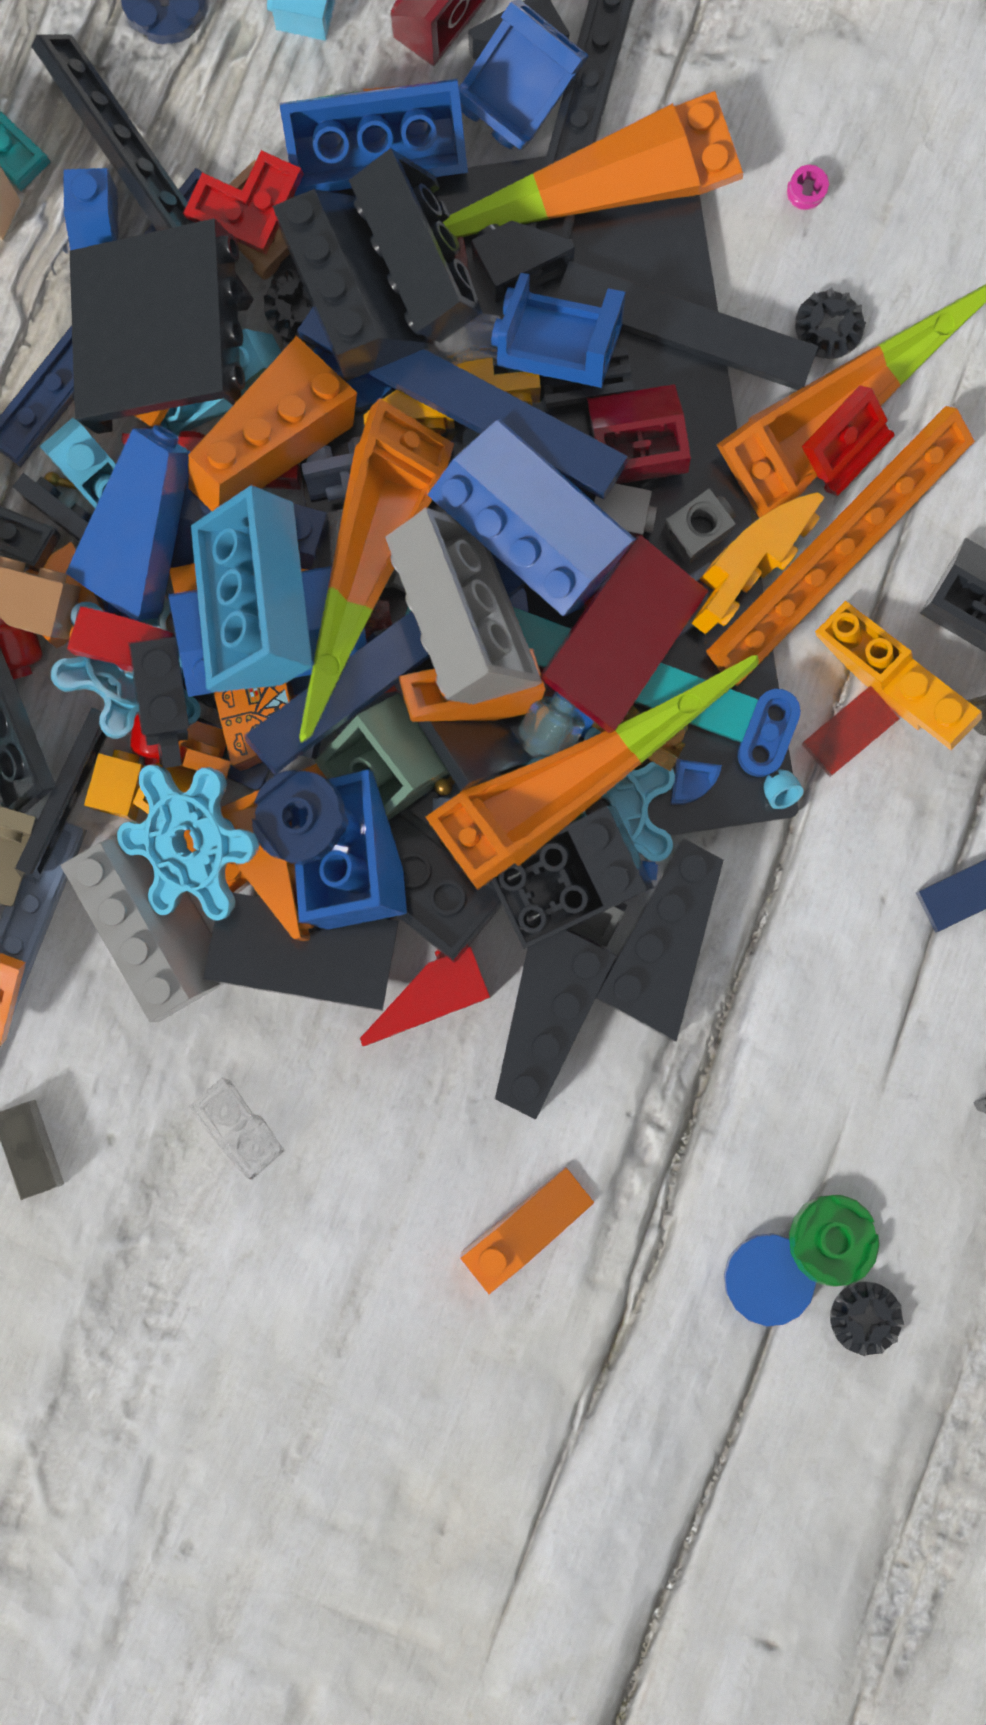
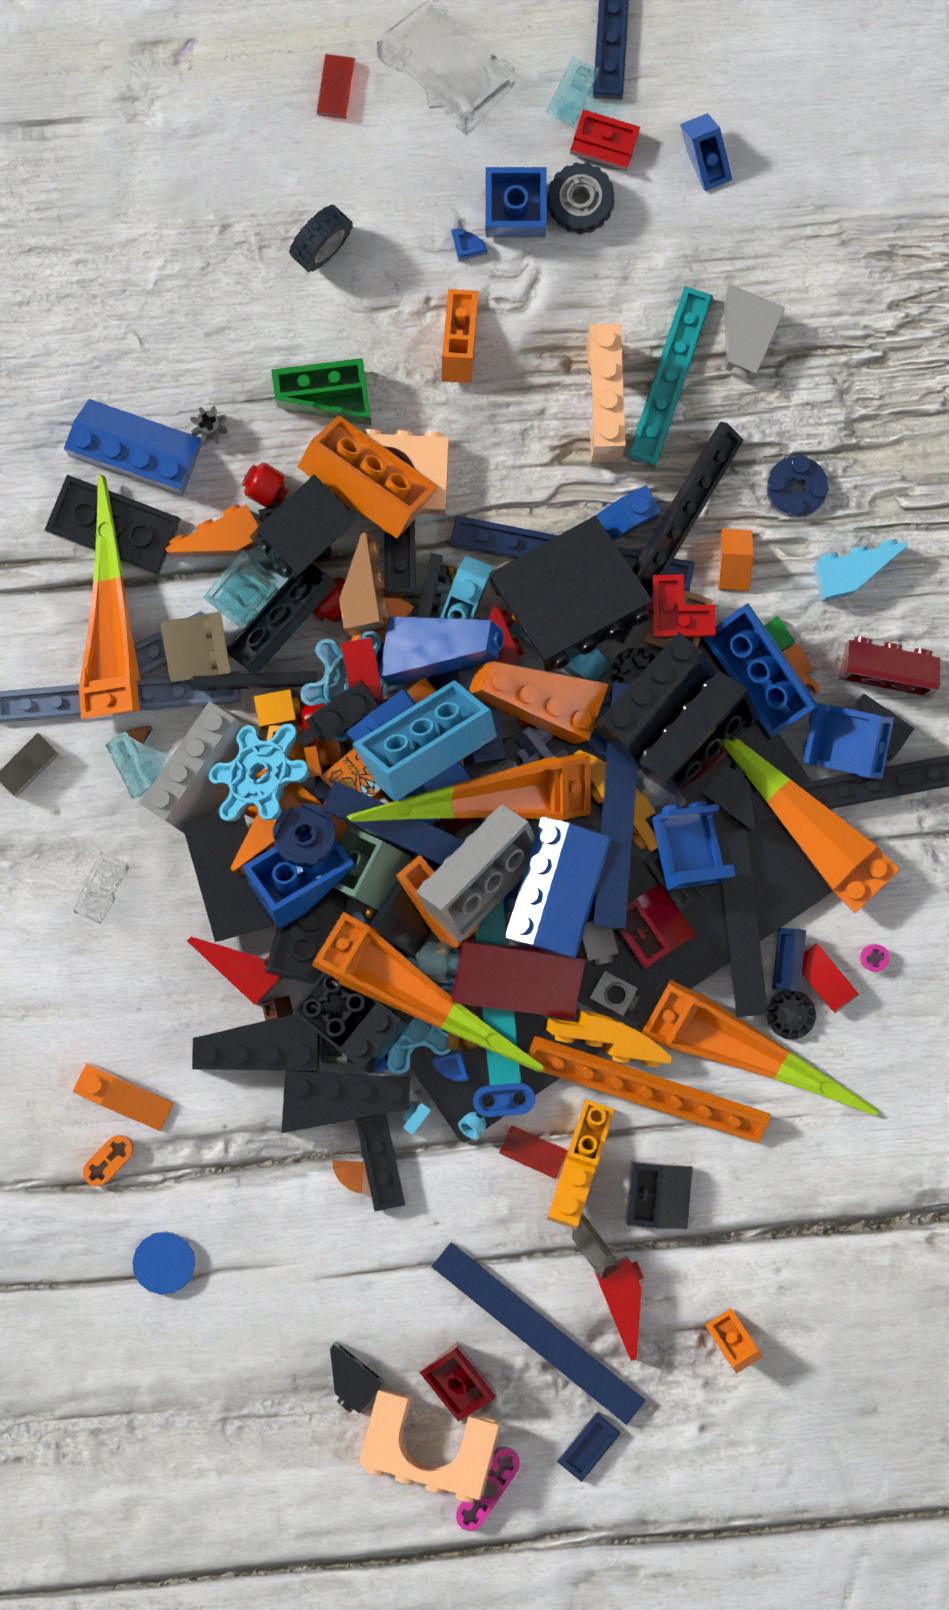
camera: 60 degrees right, 0 degrees up
(60, 981) = (140, 734): none -> reddish brown piece
(94, 1014) = (126, 759): none -> clear light blue plate
(219, 116) = (735, 559): none -> orange slope
(507, 973) = (277, 1007): none -> reddish brown piece
(610, 1285) = (113, 1165): none -> orange beam
(736, 858) = (415, 1116): none -> medium azure plate
(760, 289) = (789, 959): none -> dark blue tile
(767, 980) = (349, 1174): none -> clear orange tile
(773, 933) = (380, 1162): none -> black plate
(805, 256) = (827, 979): none -> red slope
(834, 1240) = (206, 1291): green tile -> none
(848, 440) = (716, 1062): red plate -> none
(854, 1301) = (175, 1322): black gear -> none

